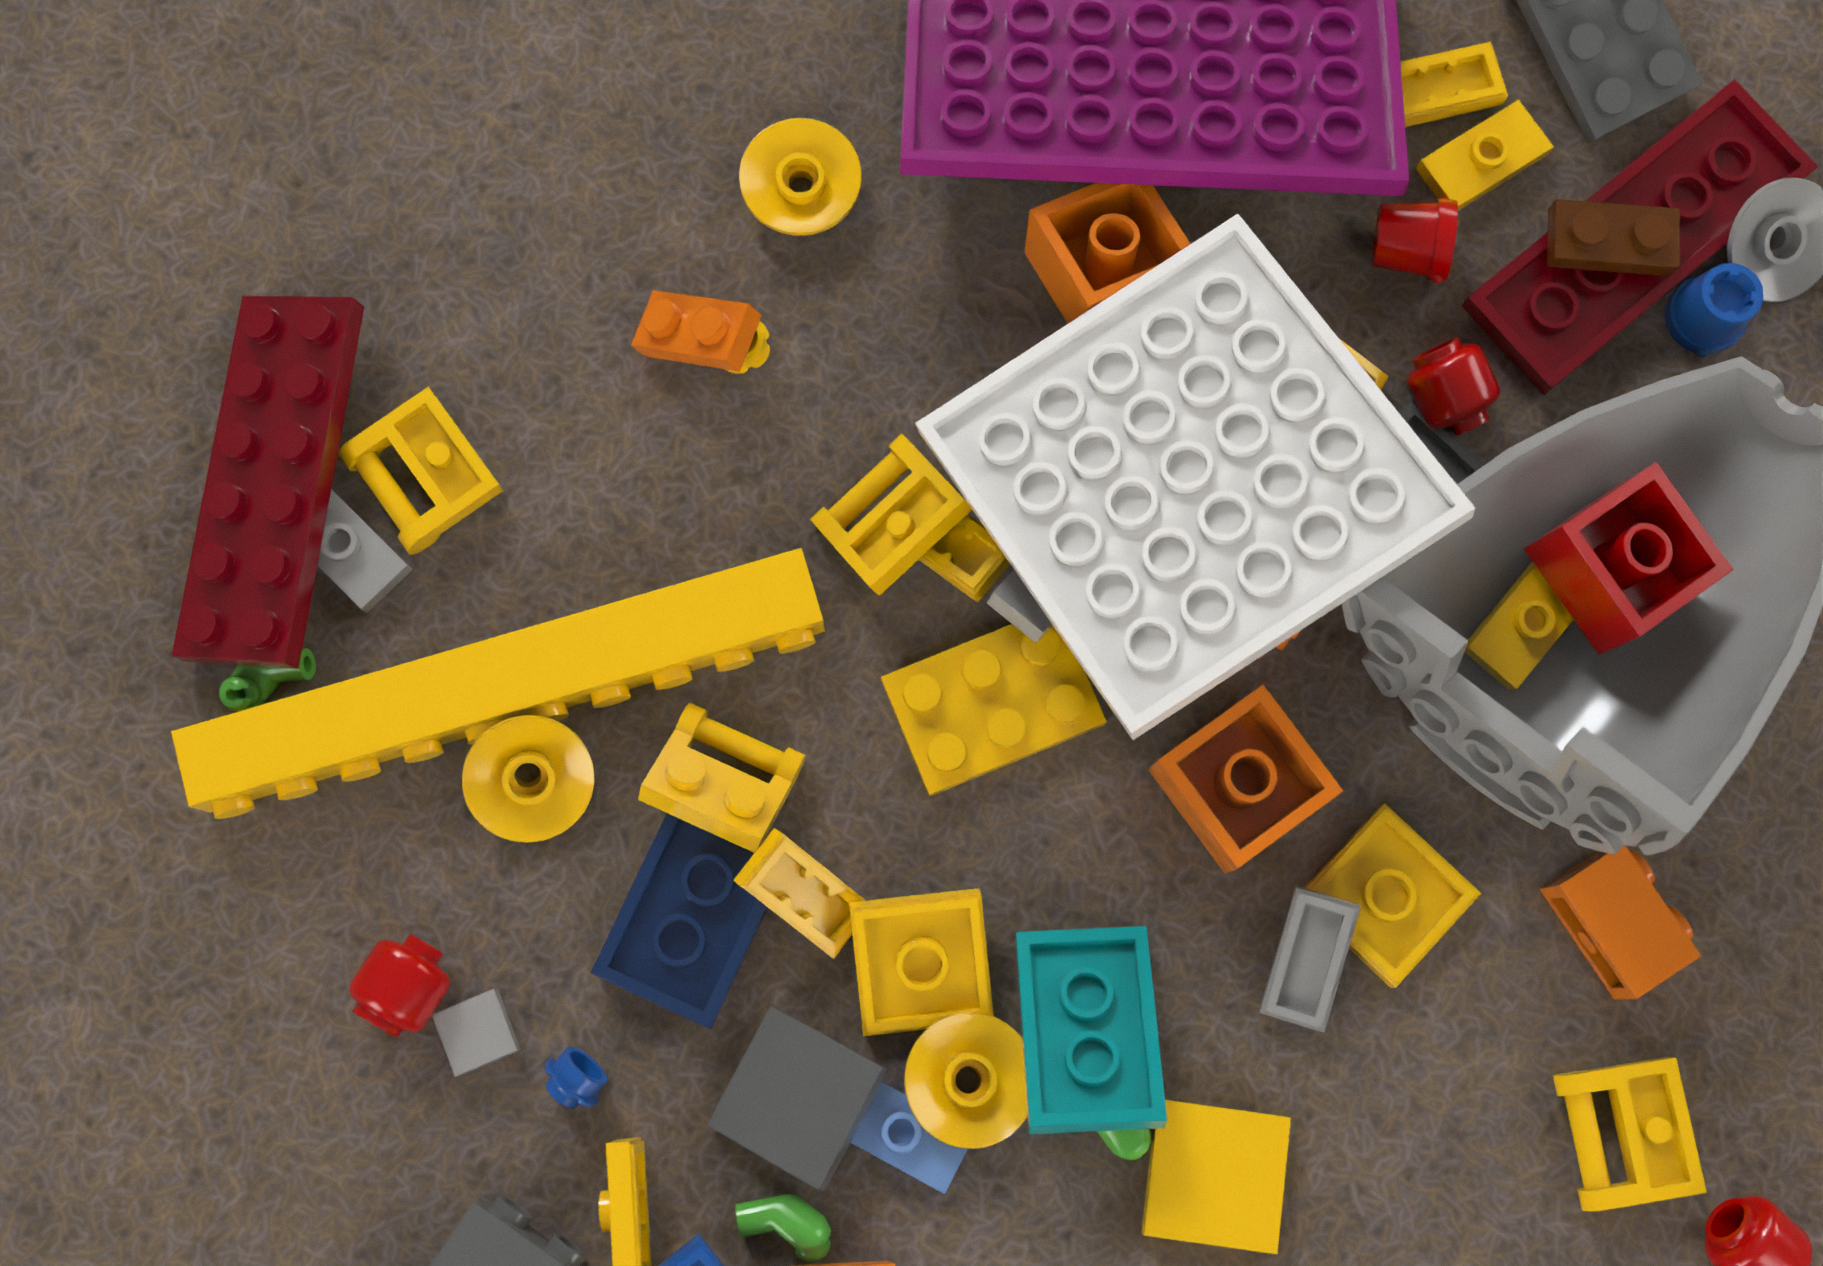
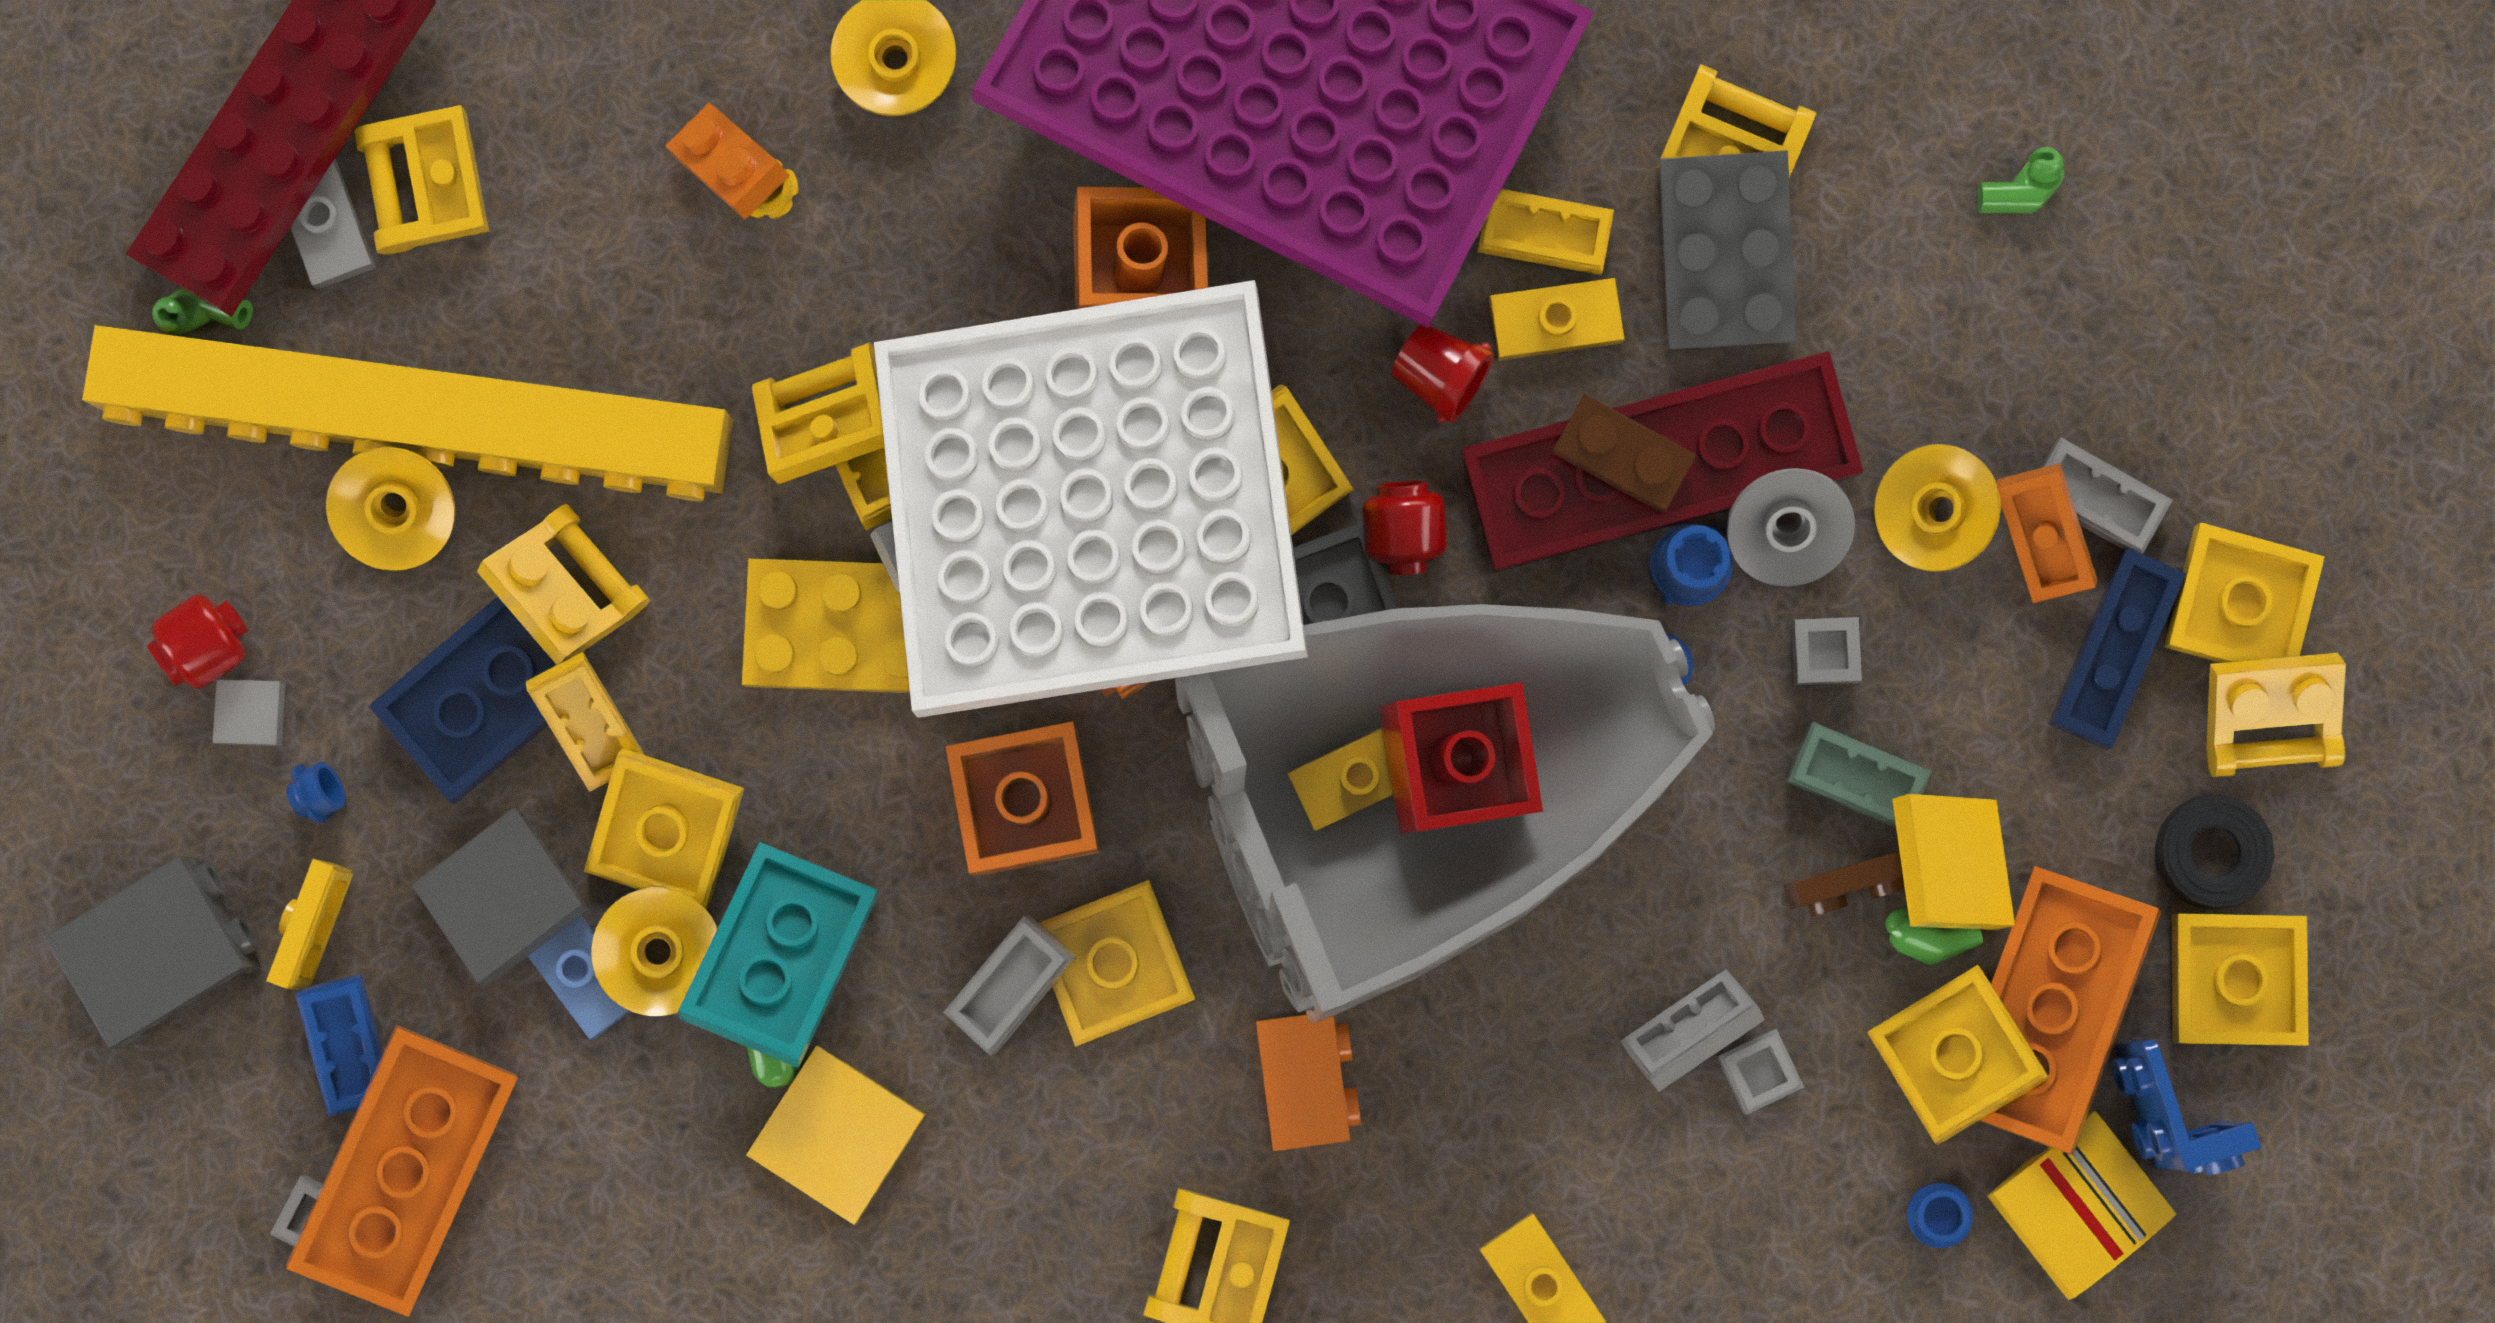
camera: 30 degrees right, 5 degrees up
(789, 1217) = (447, 998): bright green arm -> none

